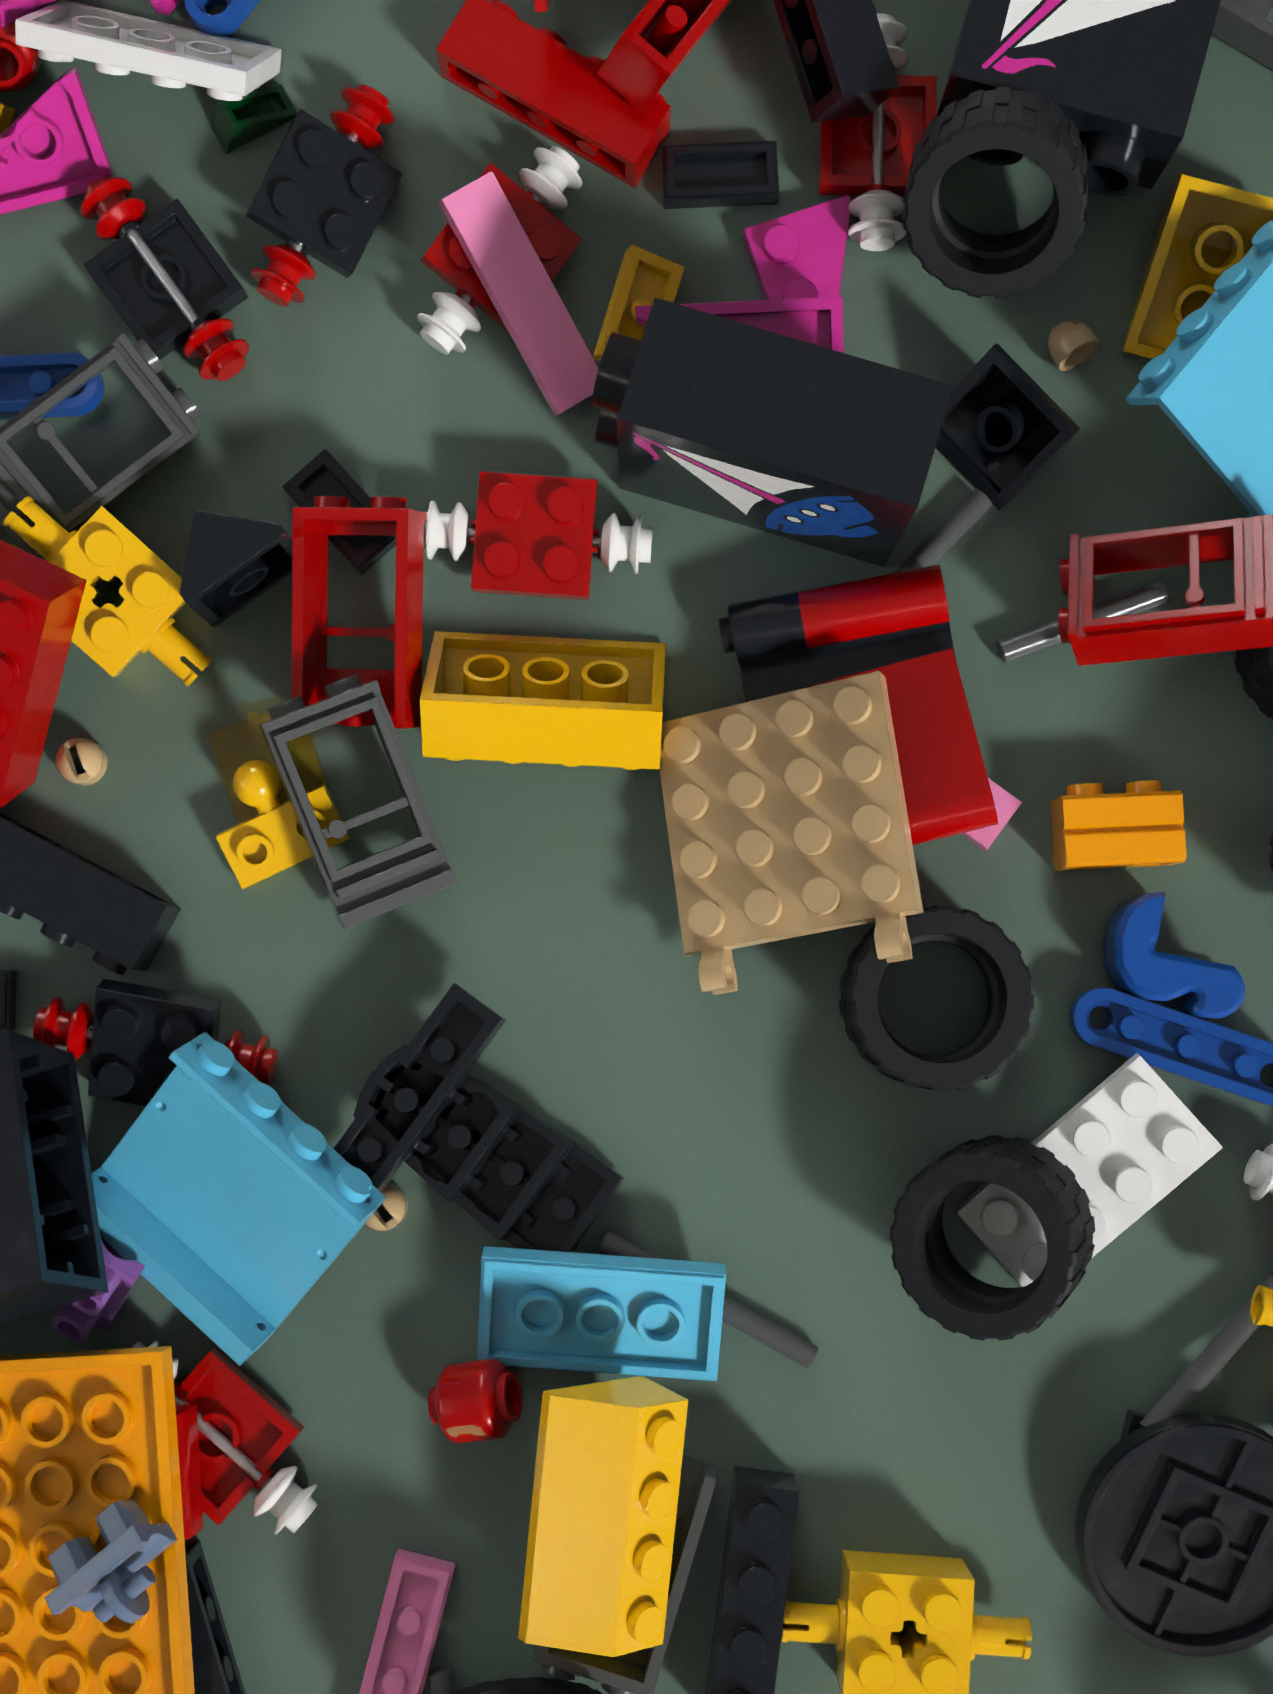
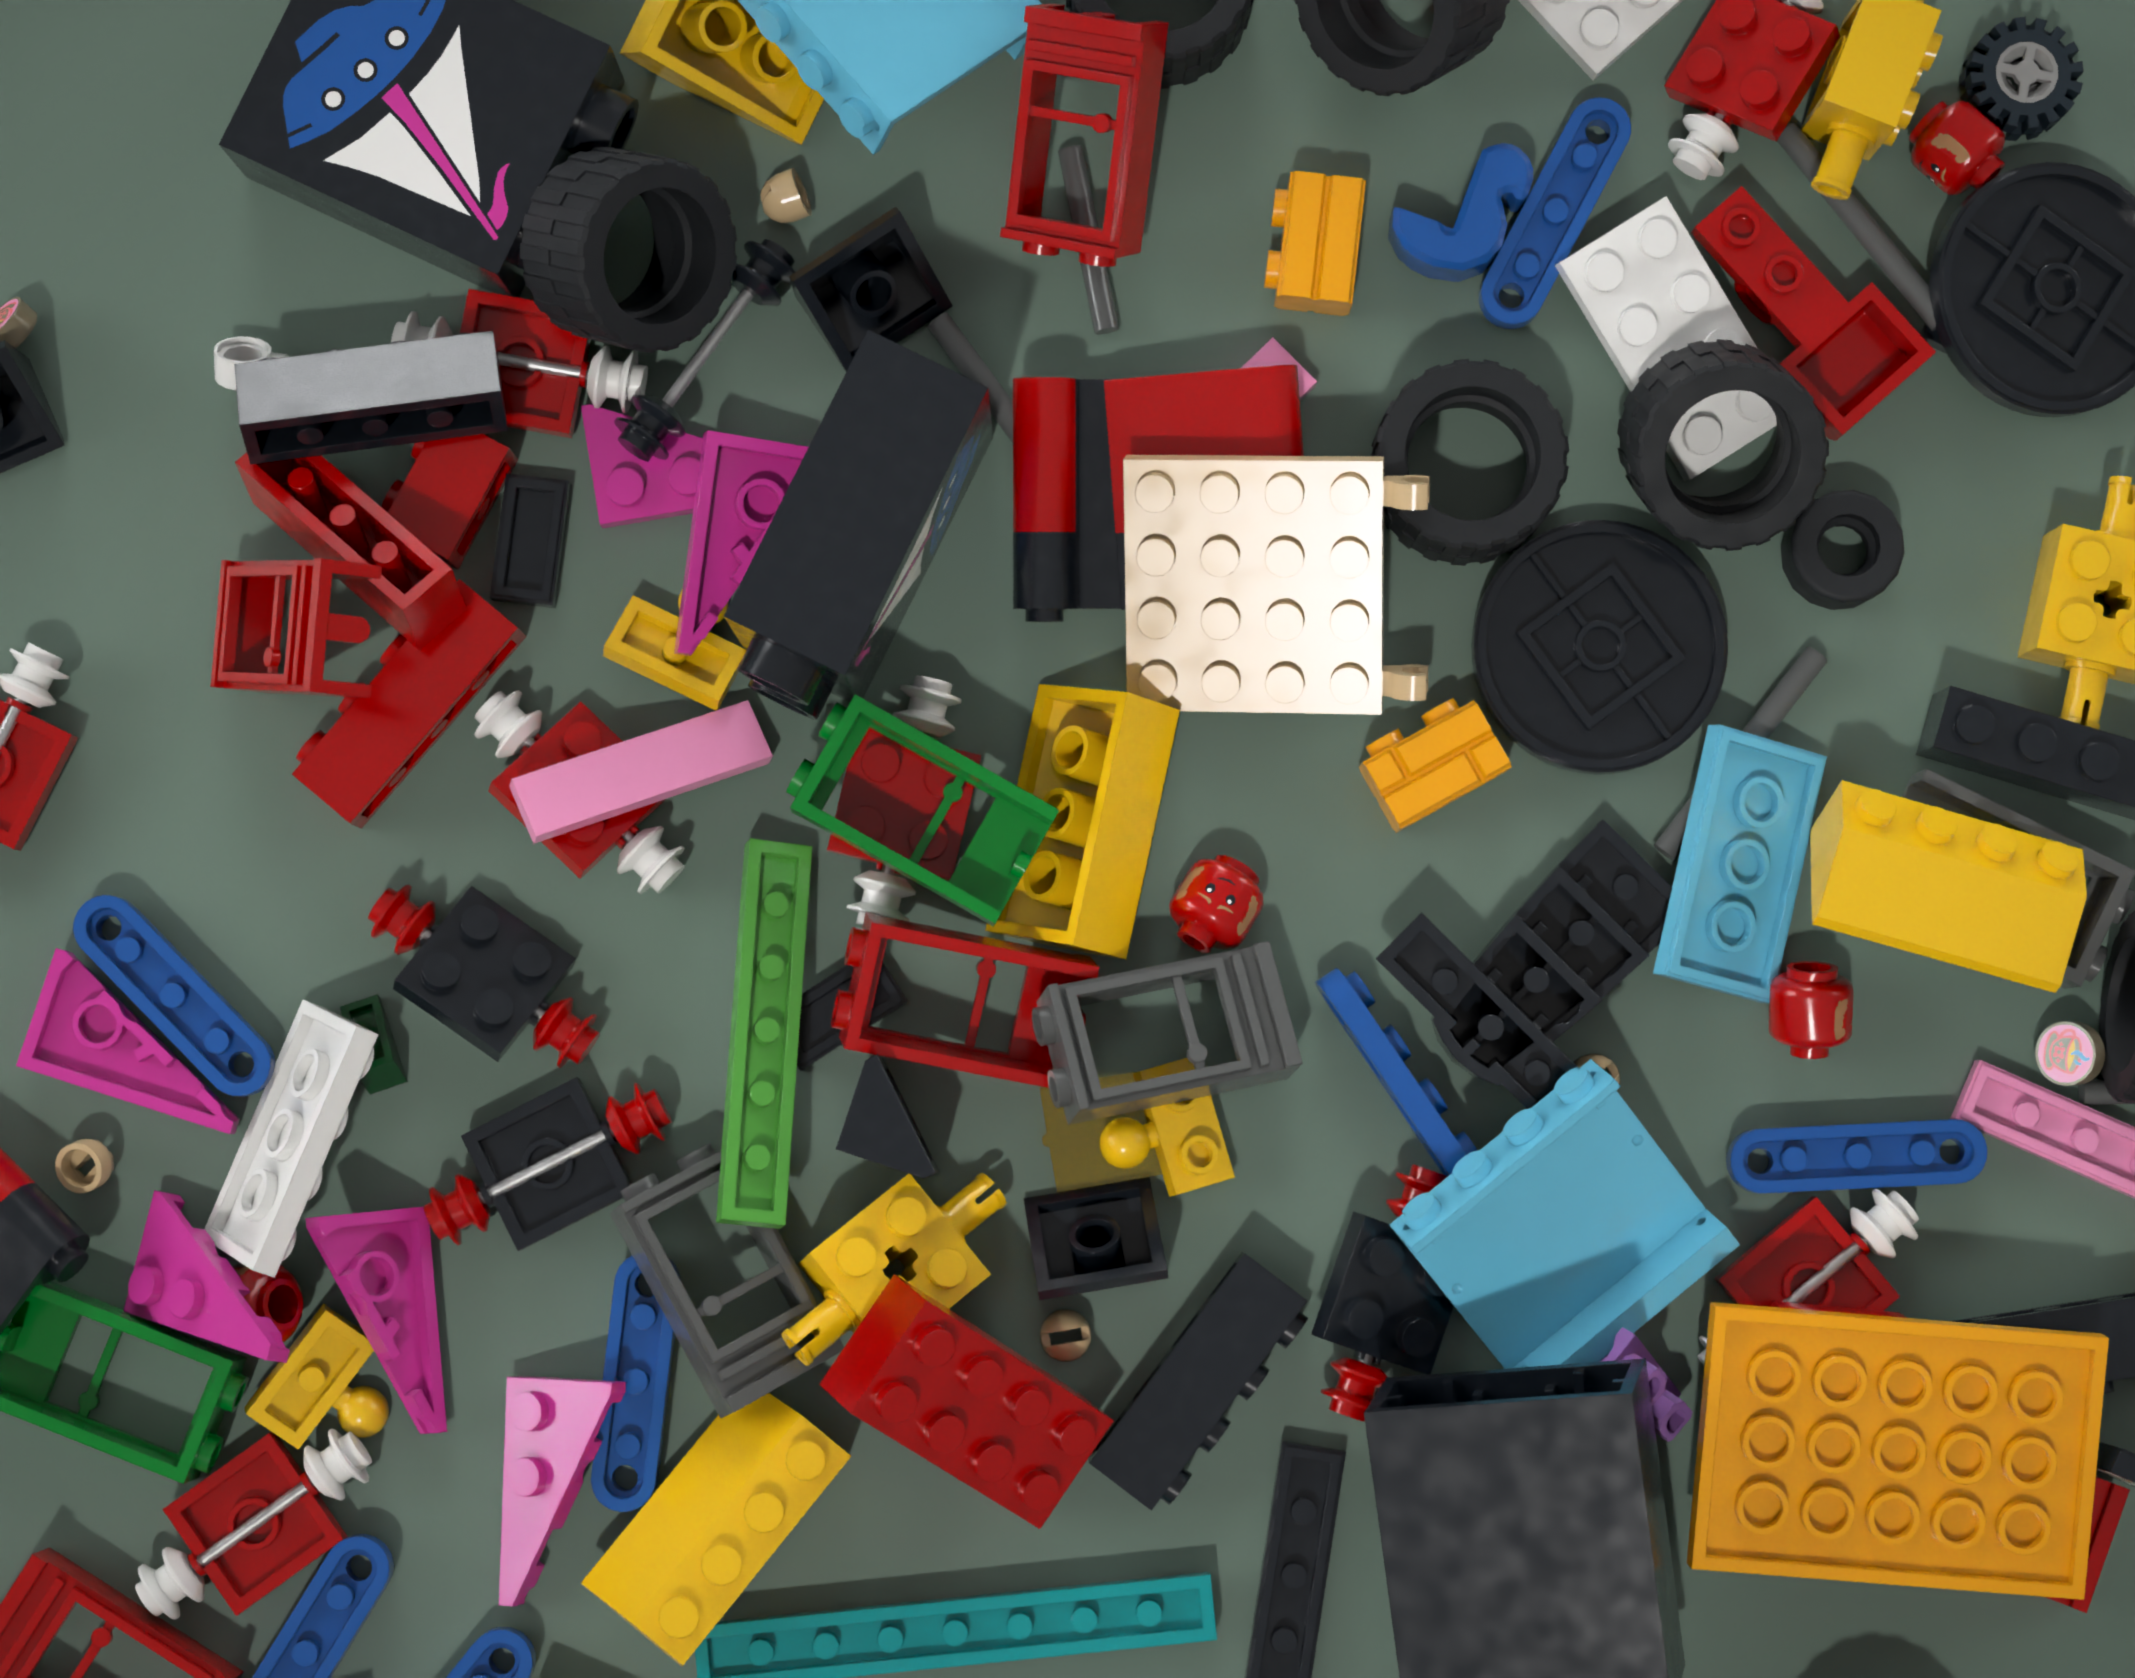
camera: 85 degrees left, 0 degrees up
(116, 1576) = (1934, 1411): sand blue hips -> none
(163, 771) = (1095, 1238): none -> black slope
(301, 442) = (764, 1034): none -> bright green plate
(345, 1465) = (1857, 1156): none -> blue plate
(371, 1009) = (1386, 1055): none -> blue plate
(472, 1656) = (2070, 1053): none -> tile
(487, 832) = (1216, 904): none -> red head
(495, 620) = (997, 851): none -> green door
(648, 1012) = (1433, 764): none -> light orange brick
(746, 91) = (450, 492): none -> red brick
(784, 1151) = (1599, 647): none -> black plate
(845, 253) = (655, 417): none -> black axle
(922, 1406) = (1876, 528): none -> black tyre
(1104, 1340) = (1844, 350): none -> red plate

